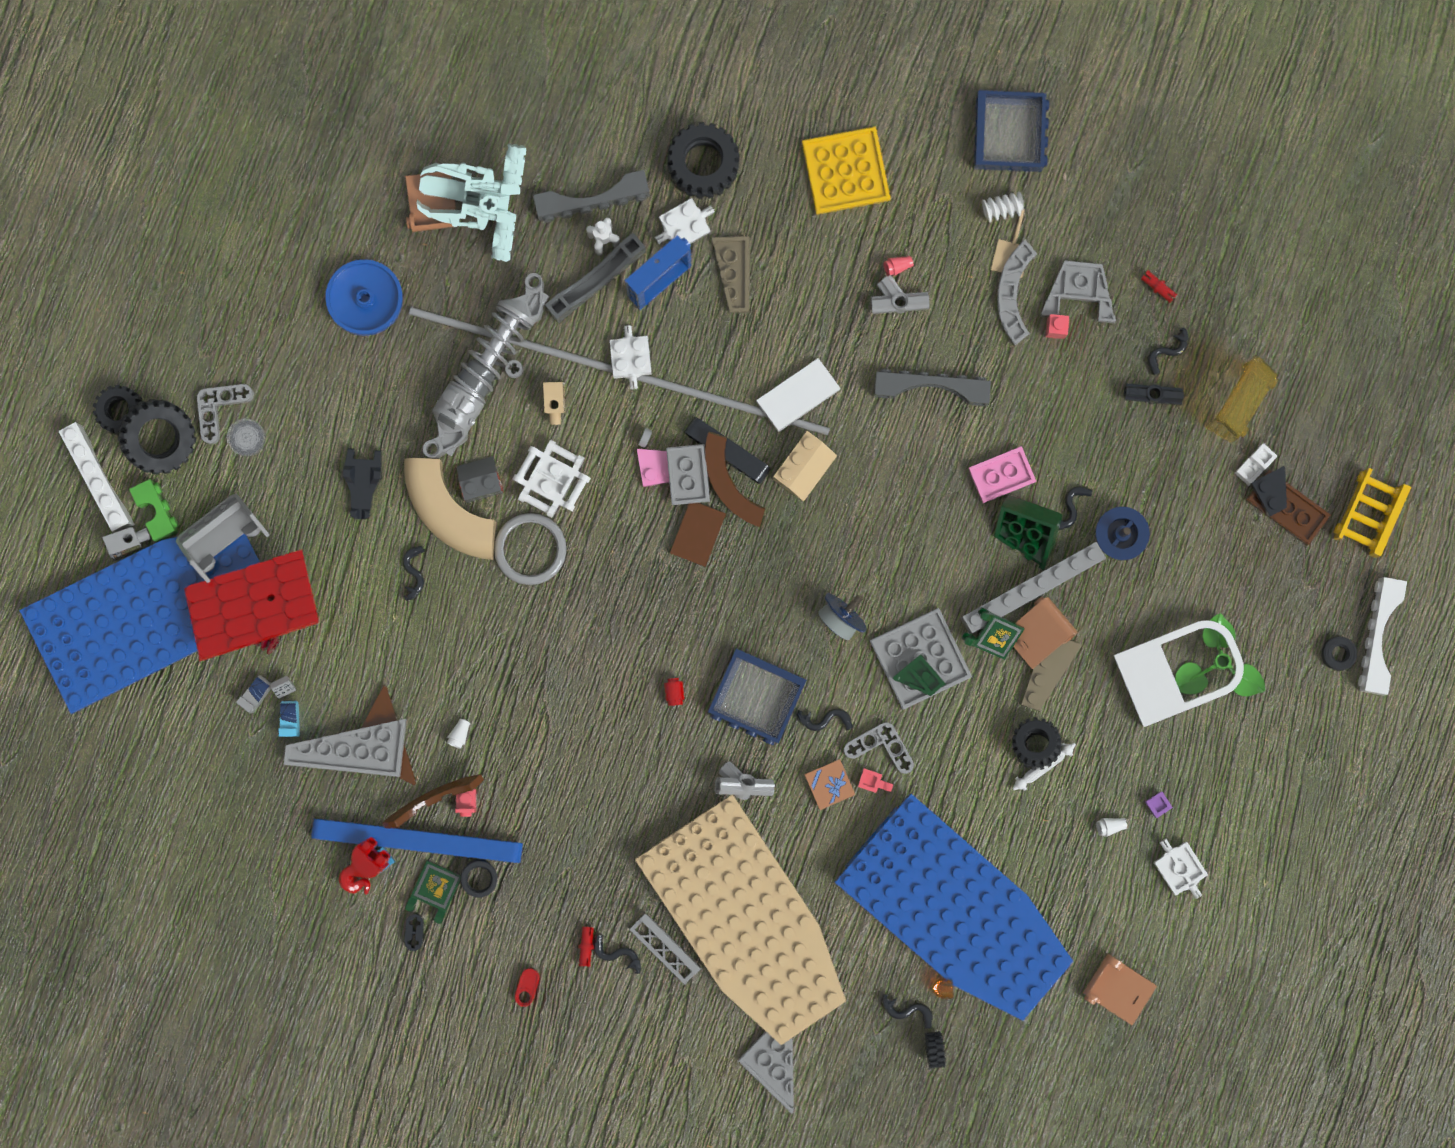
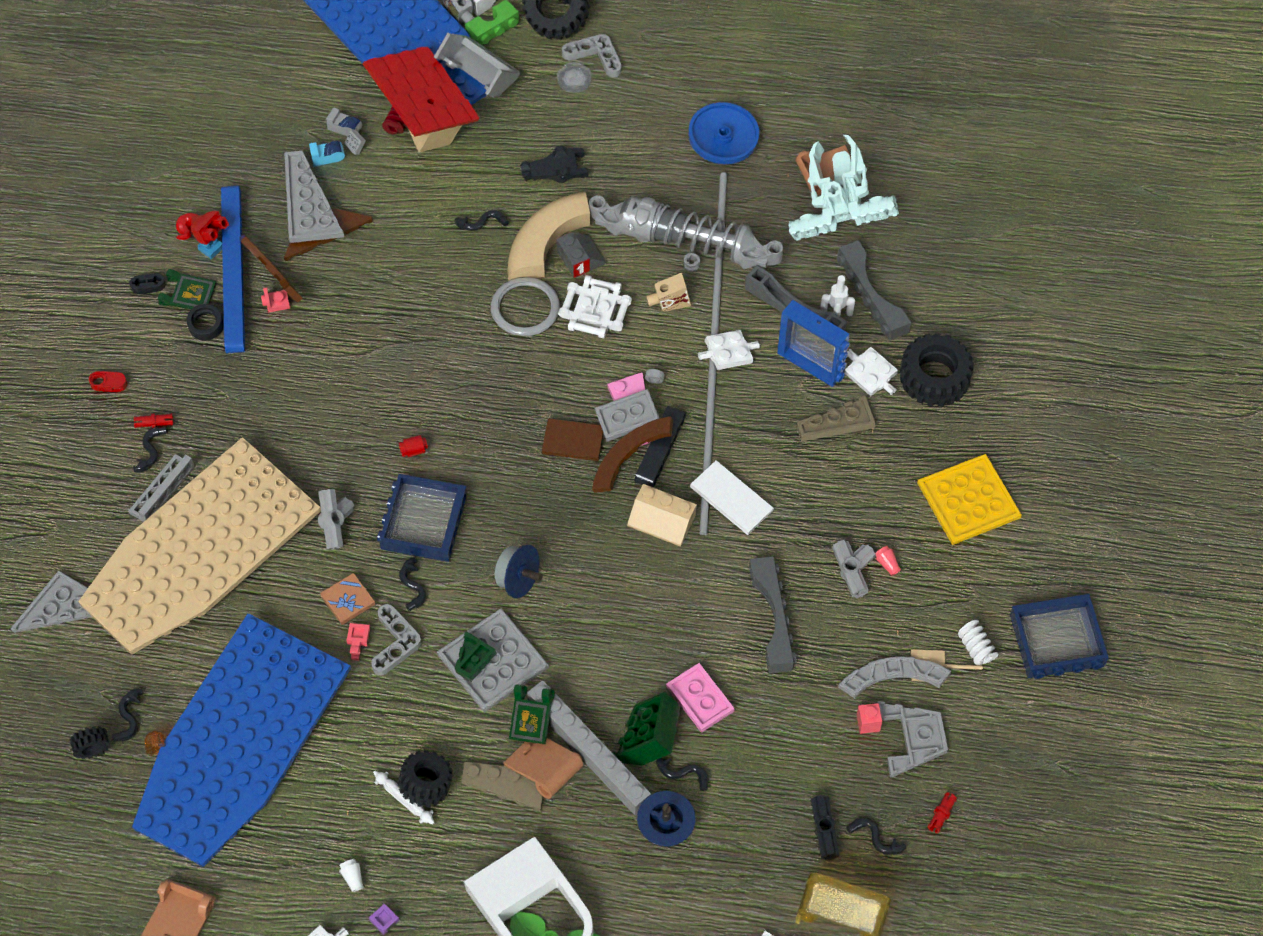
camera: 80 degrees right, 25 degrees down
(458, 734) = (338, 282): white cone -> none

